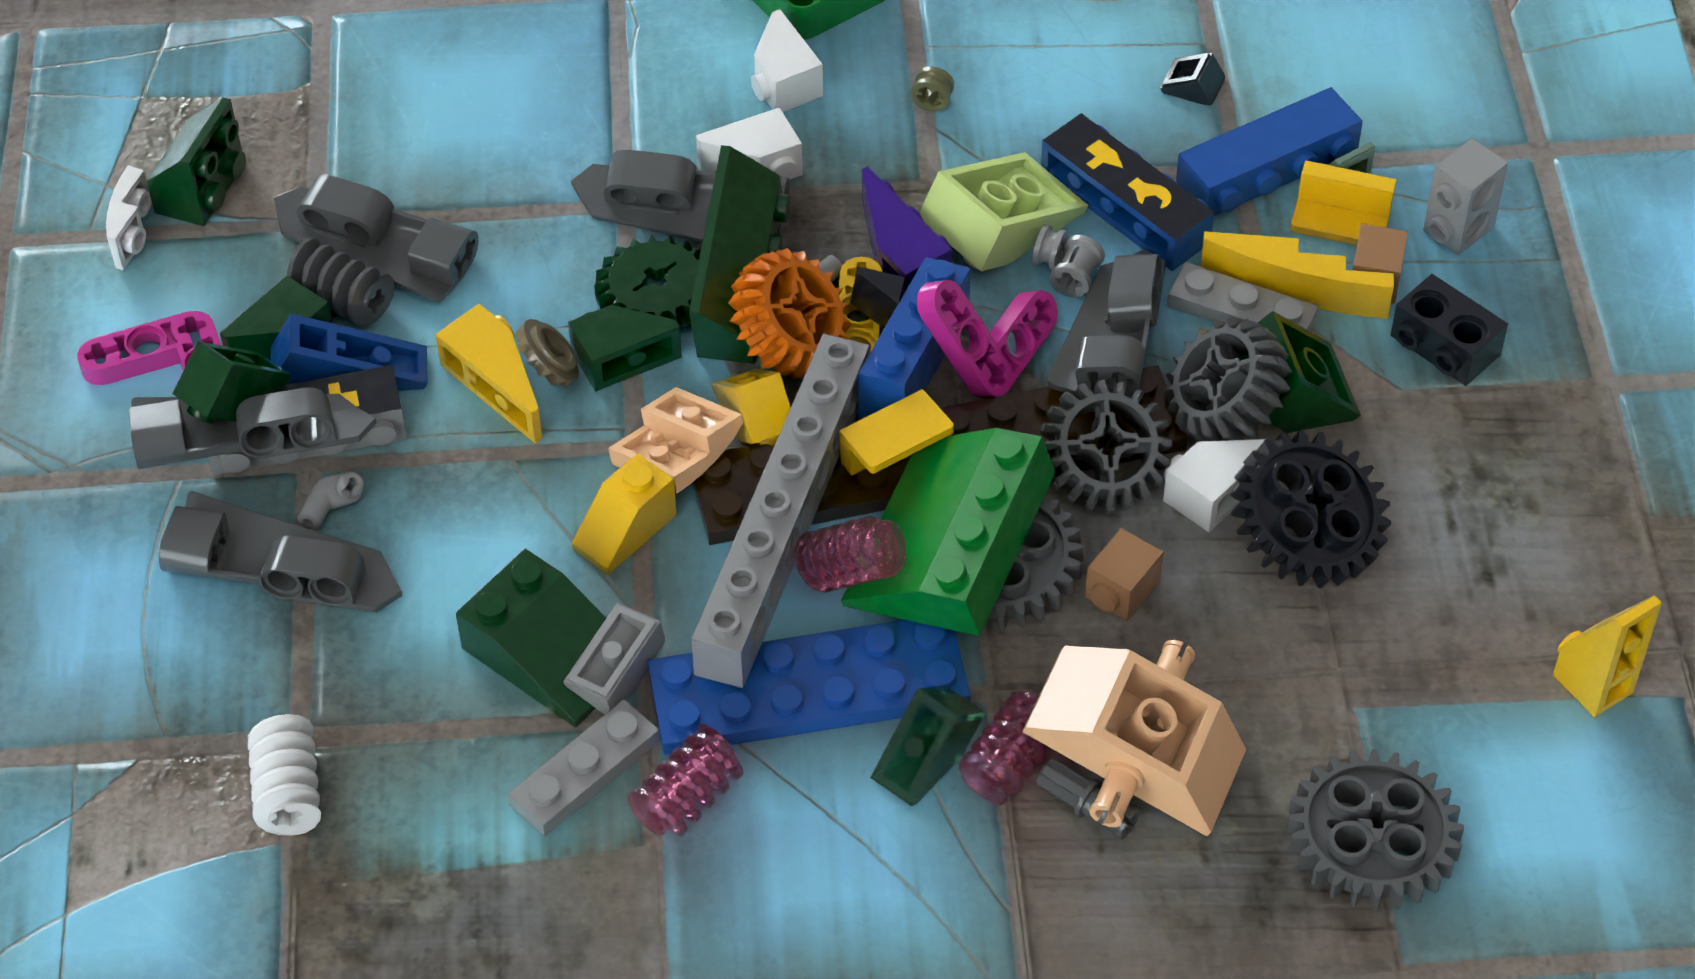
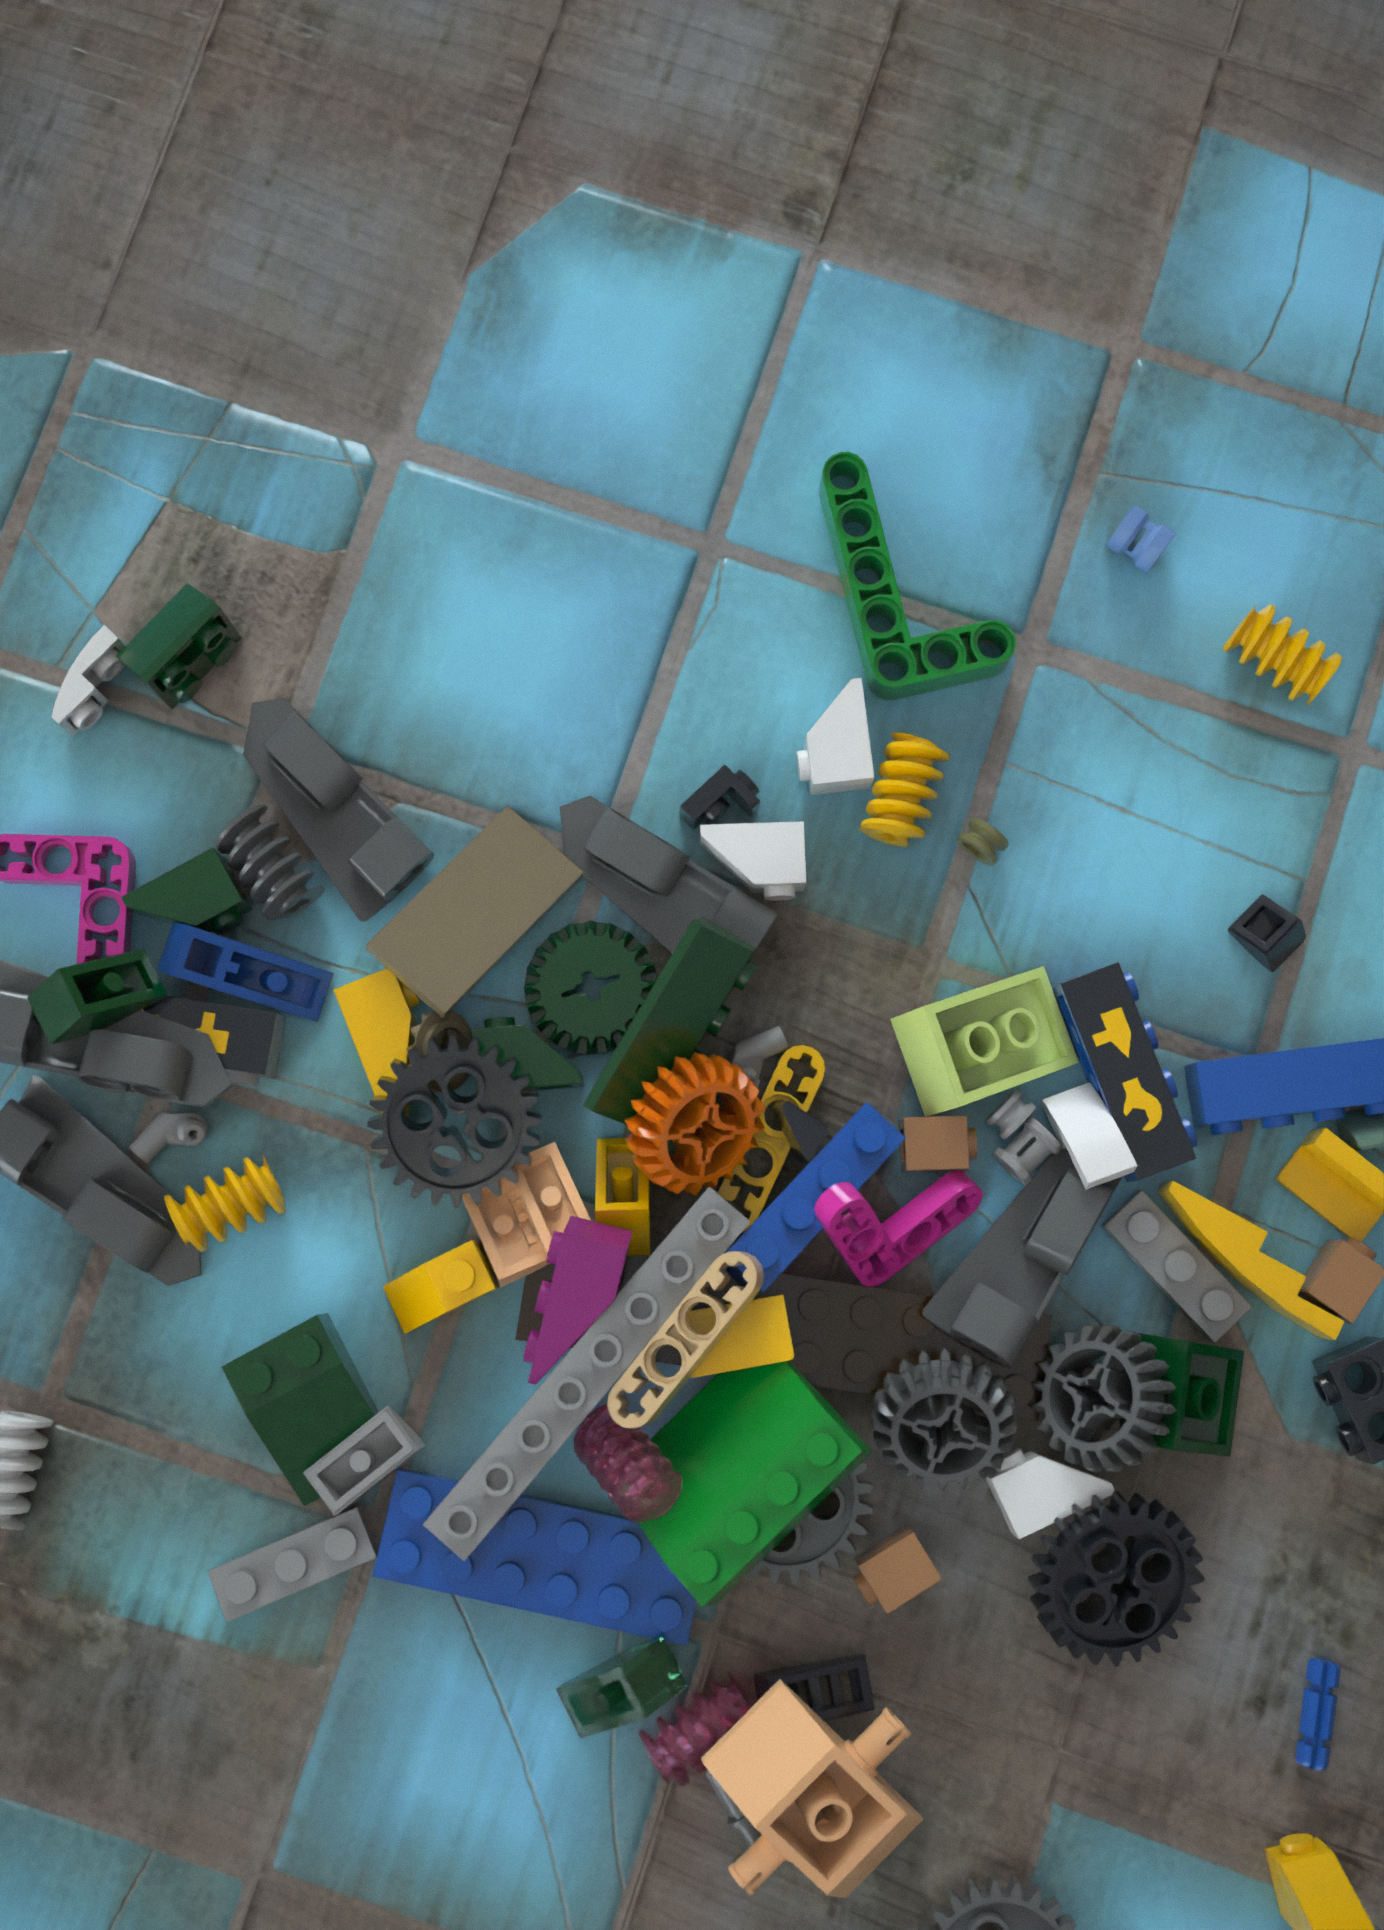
camera: 20 degrees right, 30 degrees up
(403, 515) = (226, 1204): none -> yellow piece
(532, 254) = (474, 912): none -> dark tan tile
(583, 376) = (412, 1143): none -> black gear
(685, 782) = (374, 1645): clear pink piece -> none
(699, 117) = (710, 801): none -> black bracket
(748, 429) = (584, 1283): none -> magenta slope
(848, 434) = (690, 1344): none -> tan beam
(852, 75) = (903, 789): none -> yellow piece
(897, 231) = (857, 1049): dark purple slope -> none
(997, 281) = (936, 1144): none -> medium nougat brick
(1125, 230) = (1089, 1135): none -> white slope
(1537, 557) = (1318, 1714): none -> blue axle

